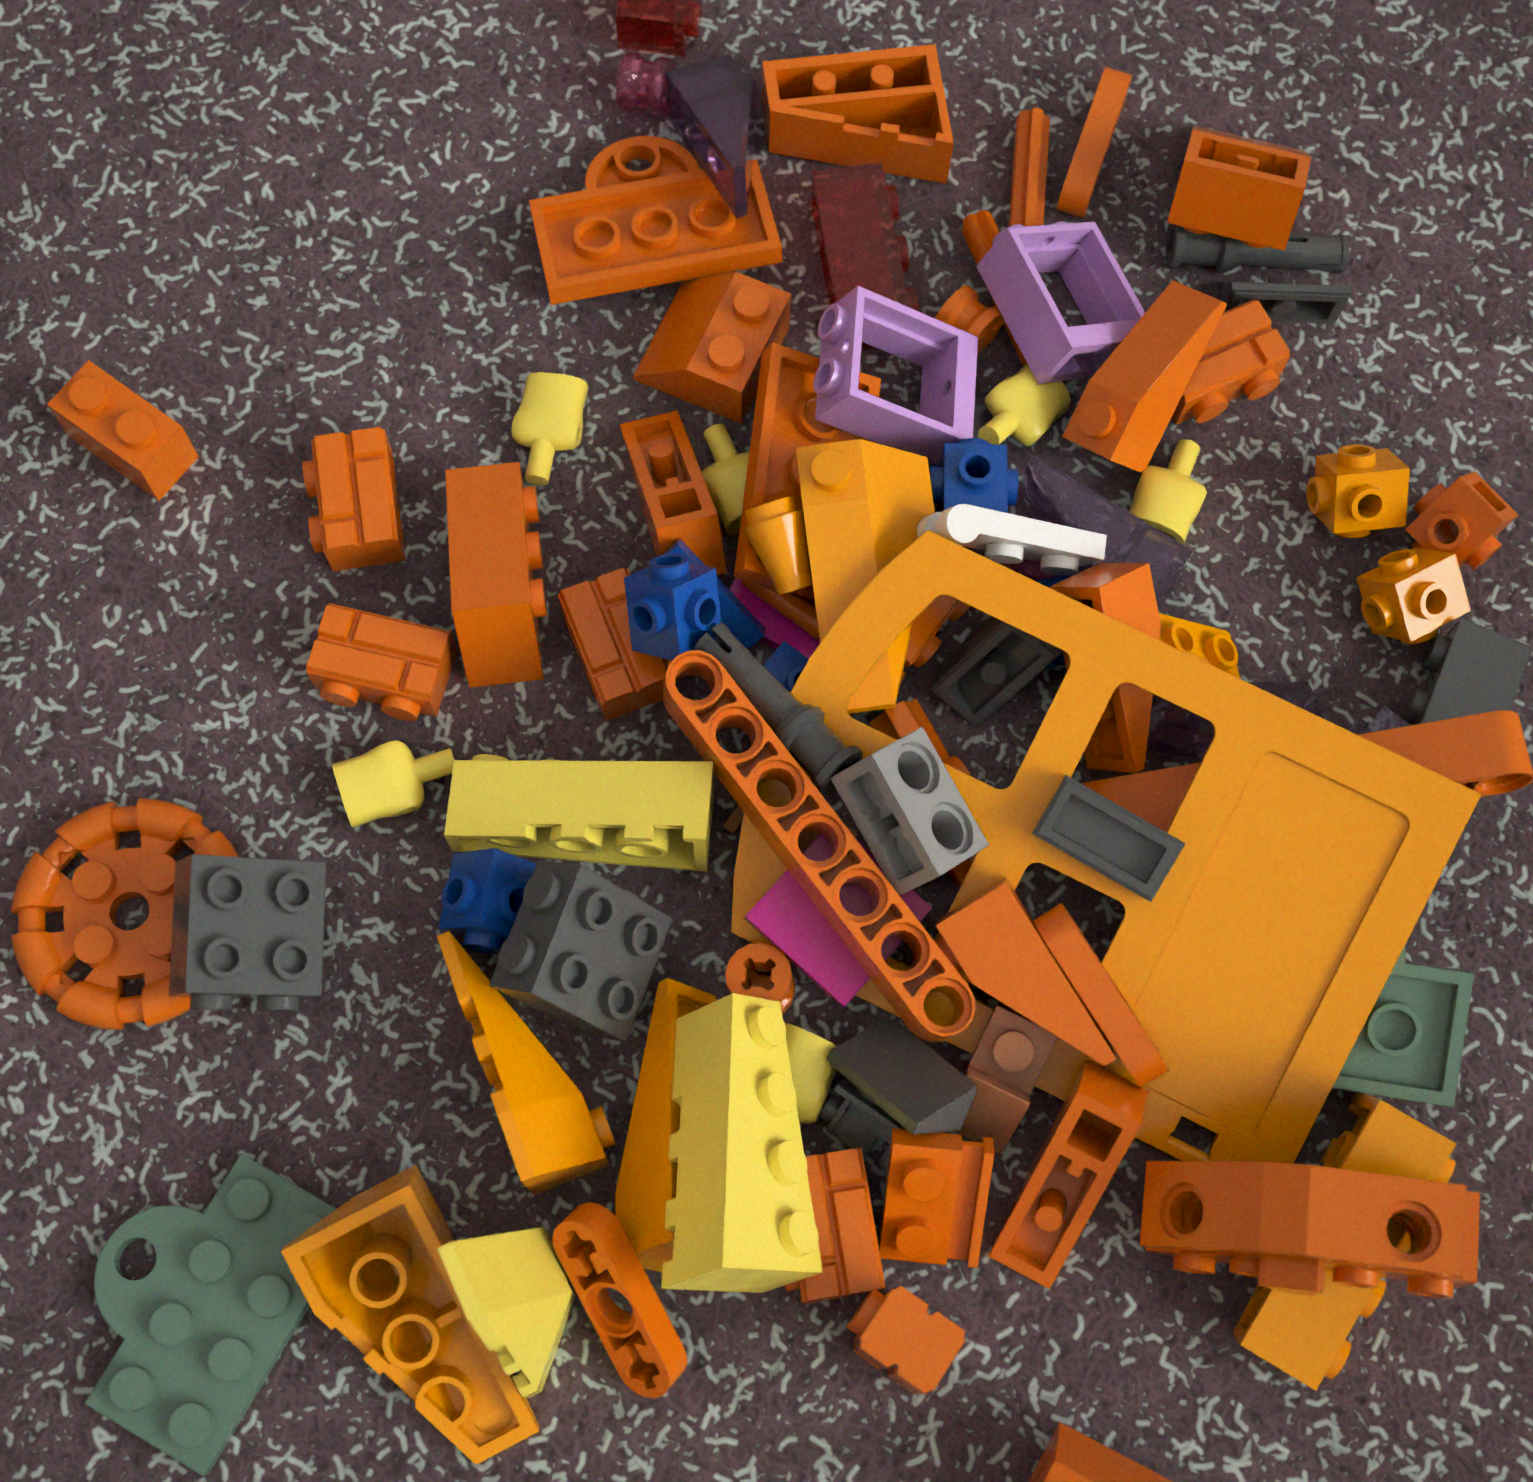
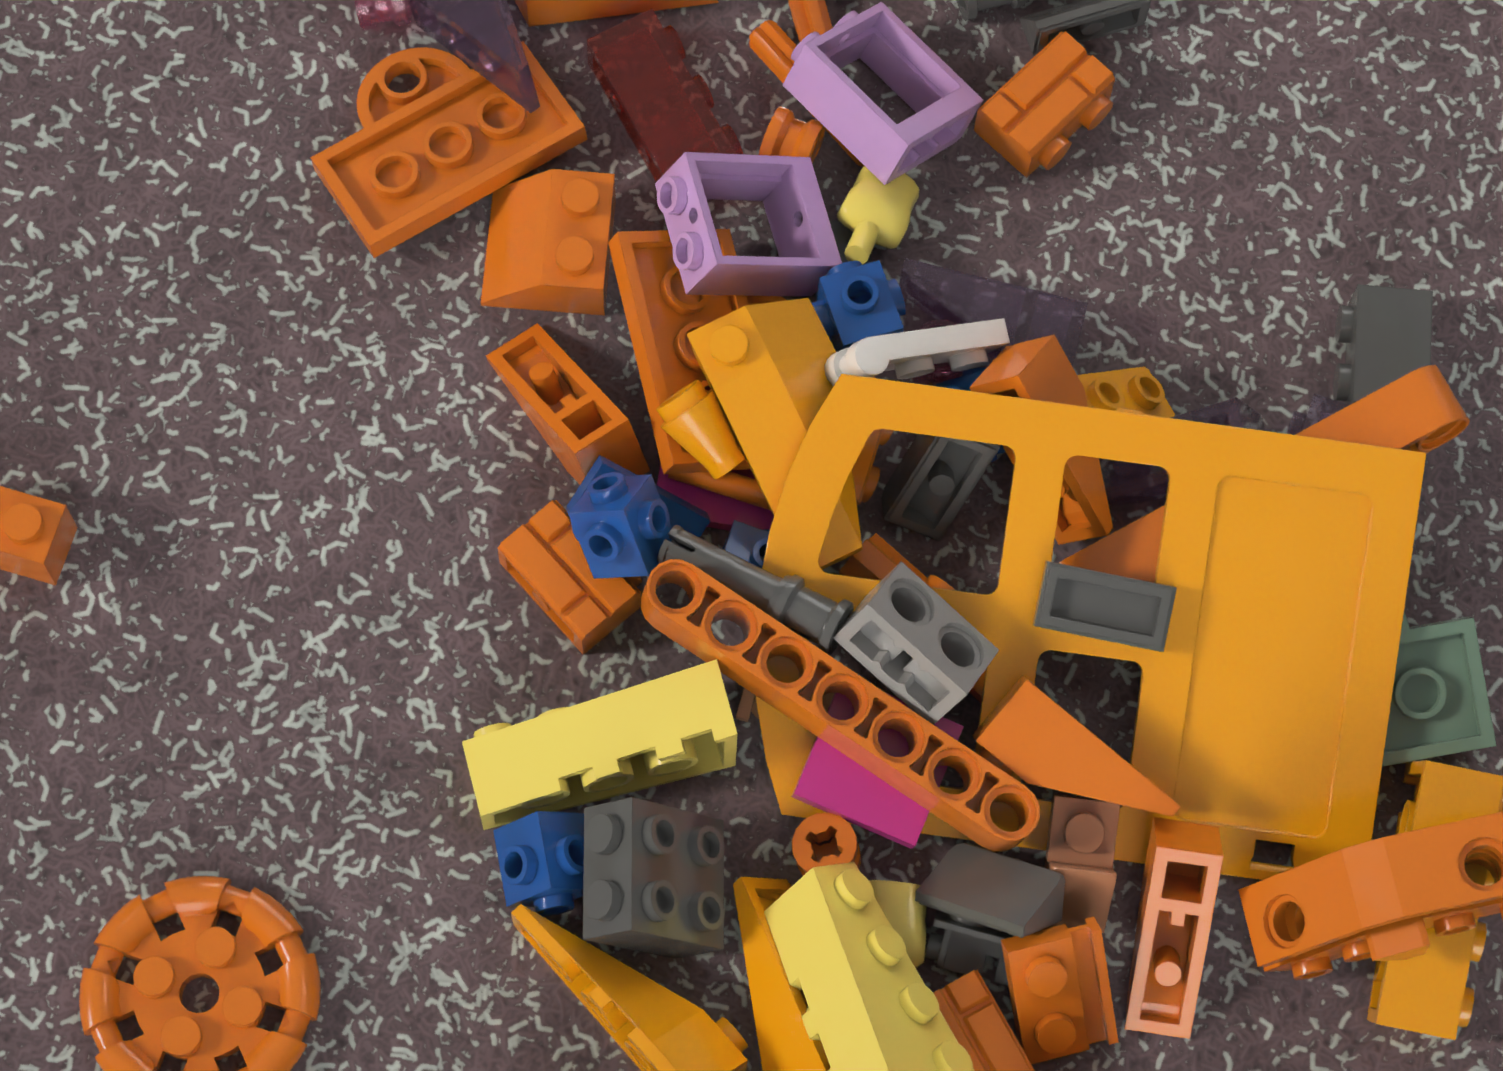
camera: 20 degrees left, 0 degrees up
(247, 931) = (330, 970): dark grey brick -> none
(355, 499) = (259, 518): orange brick -> none
(381, 662) = (348, 671): orange brick -> none
(387, 781) = (399, 783): light yellow piece -> none
(492, 573) = (428, 544): orange wedge -> none
(549, 420) = (417, 376): light yellow piece -> none
(726, 477) = (615, 373): light yellow piece -> none
(1101, 995) = (1146, 753): orange beam -> none
(1145, 378) = (985, 148): orange slope -> none
(1169, 495) = (1045, 254): light yellow piece -> none
(1359, 490) = (1223, 189): light orange brick -> none
(1412, 594) = (1306, 275): light orange brick -> none
(1475, 510) = (1328, 191): orange brick -> none

